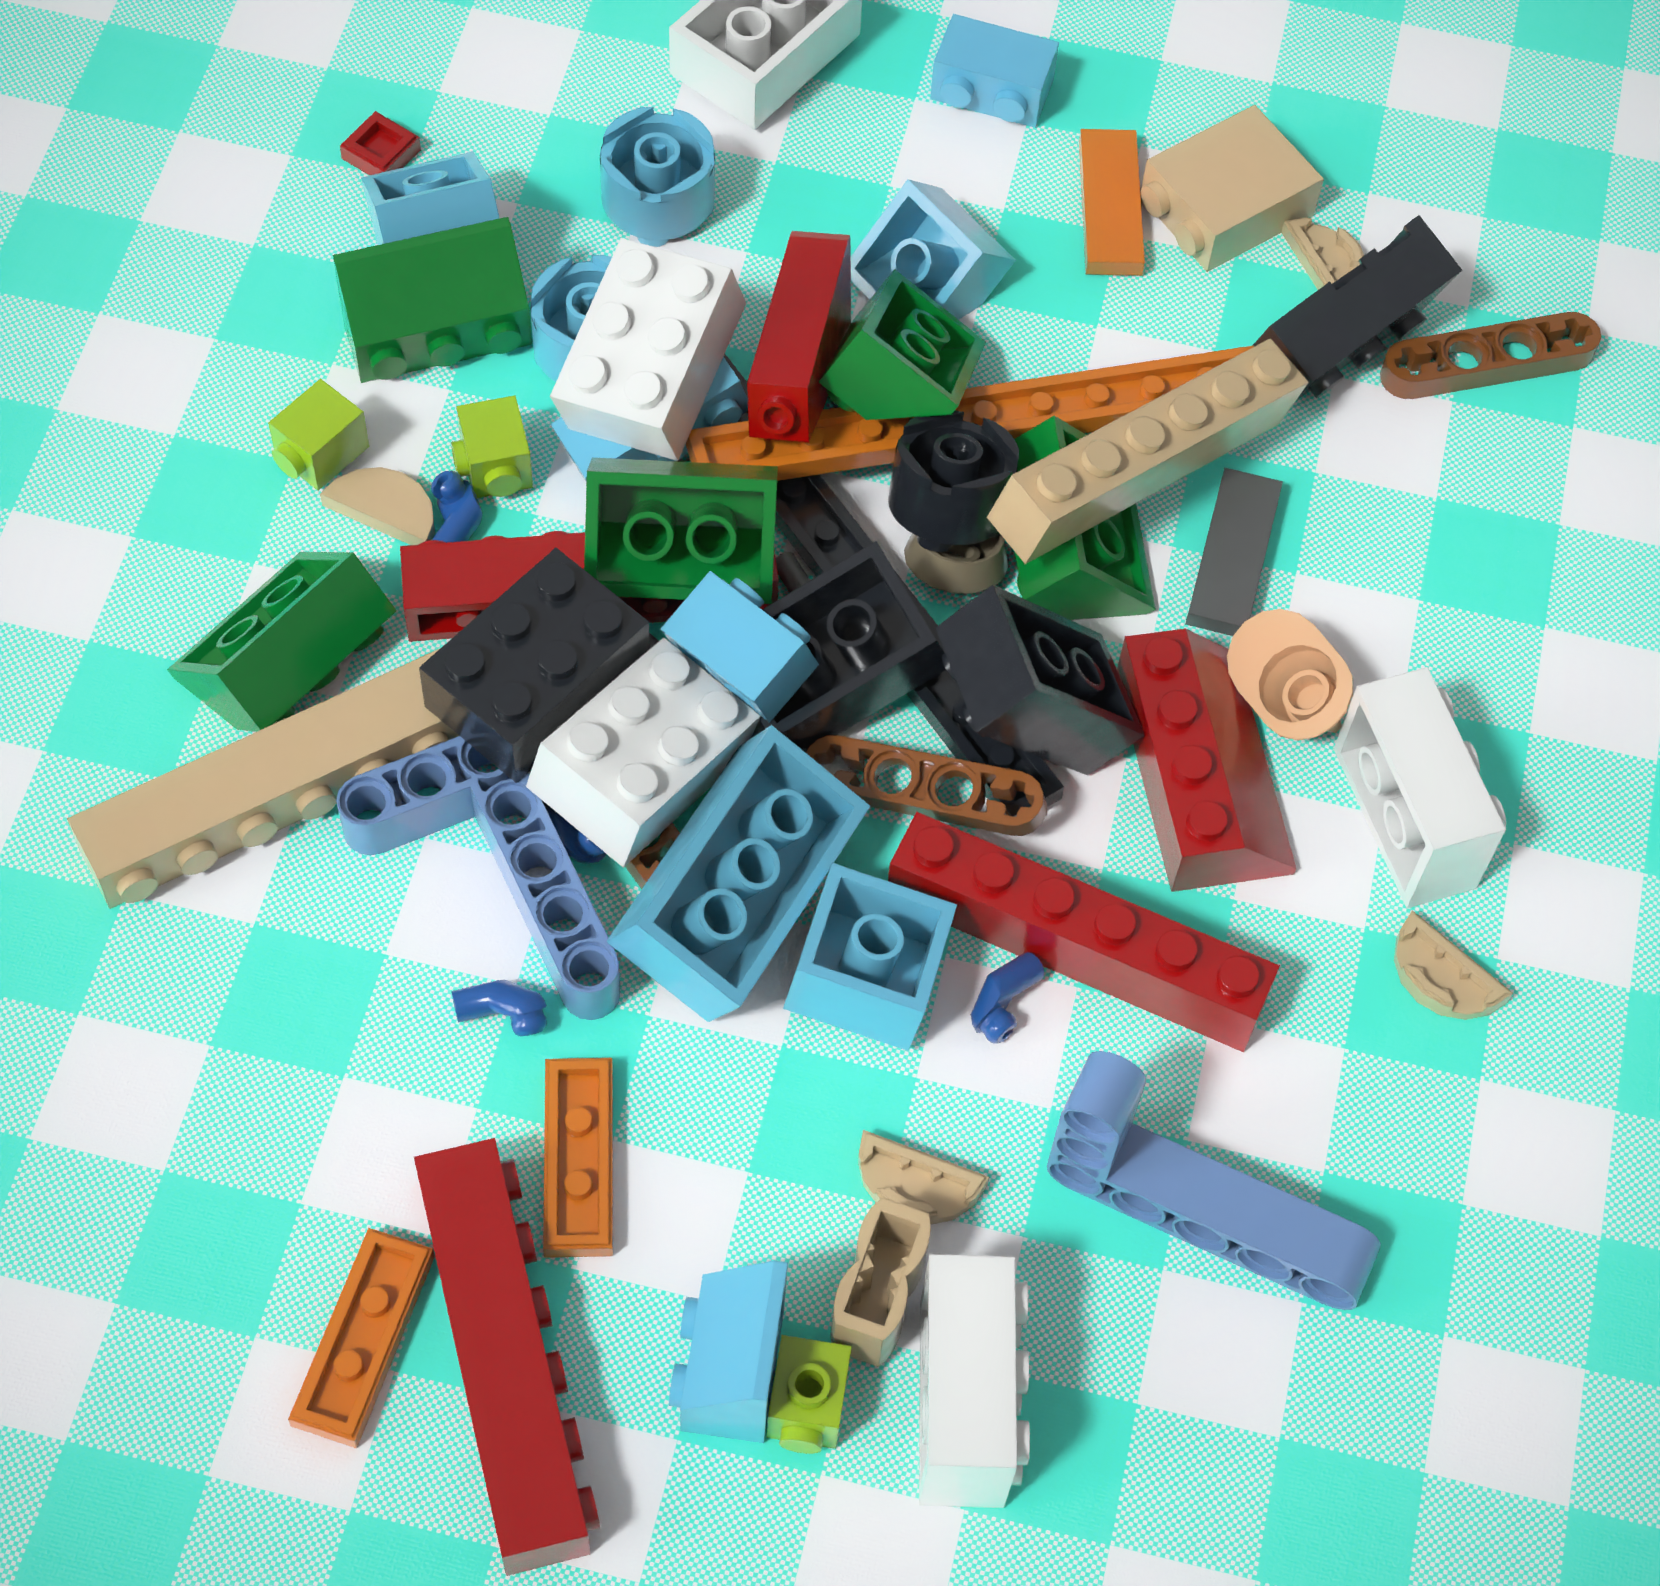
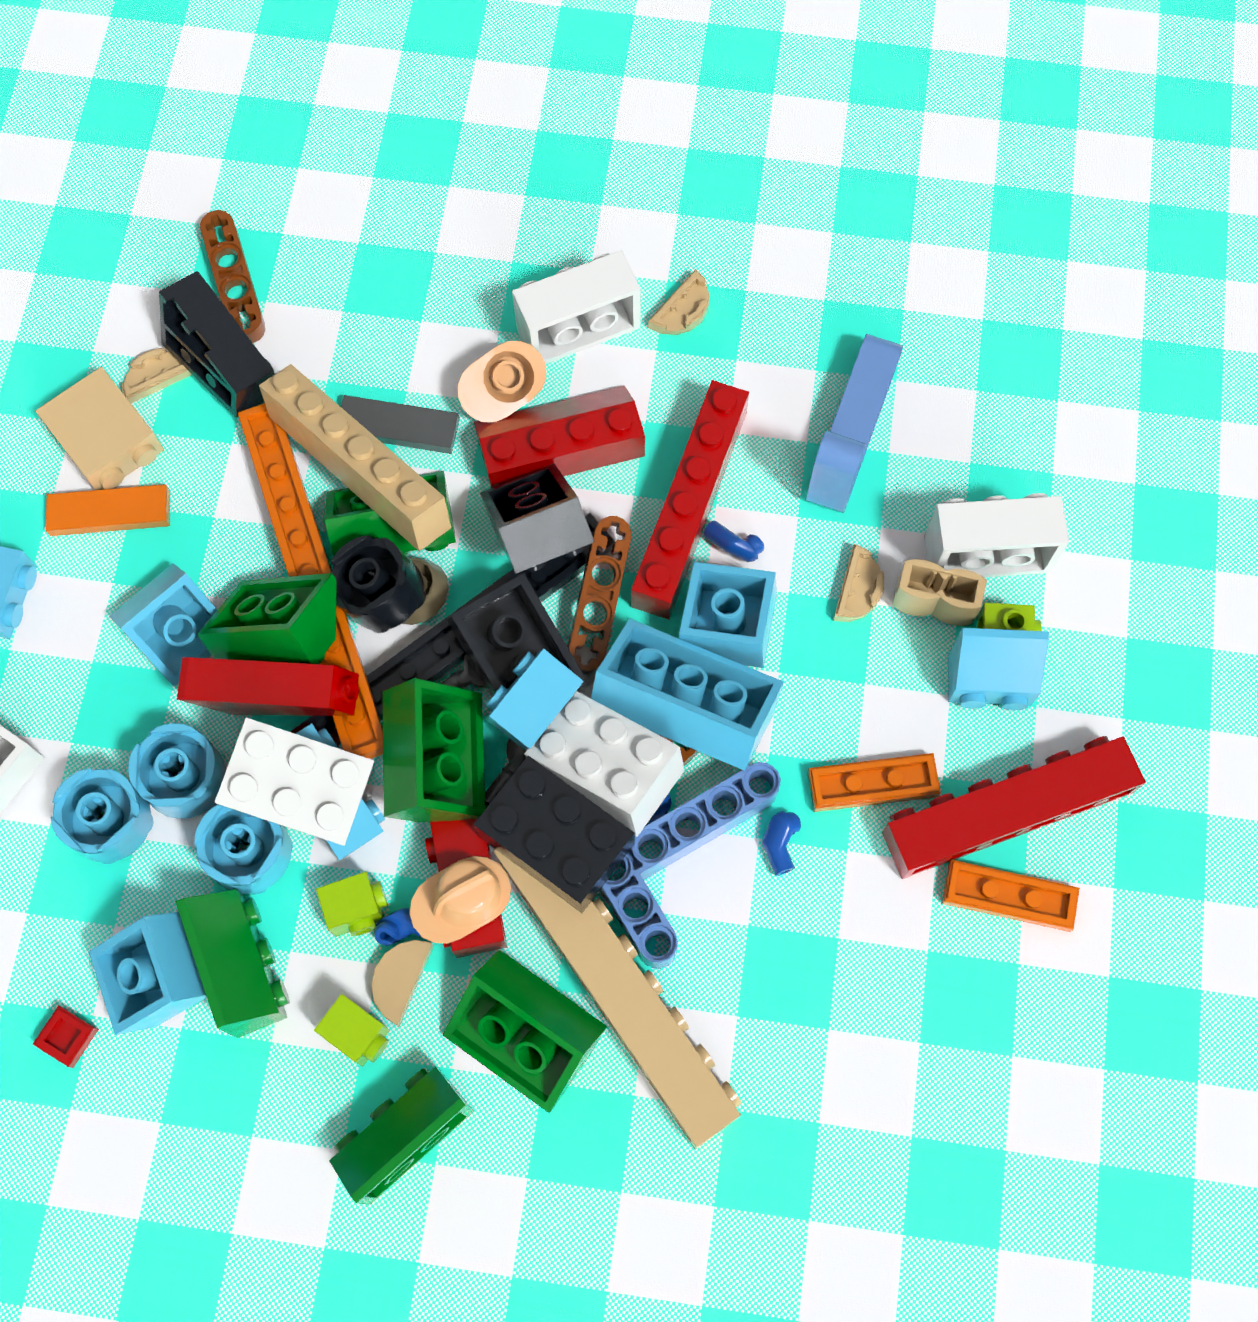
camera: 90 degrees left, 10 degrees up
(168, 480) = (399, 1135): none -> green slope
(467, 556) = (460, 899): none -> light nougat piece
(716, 229) = (162, 755): none -> medium azure brick

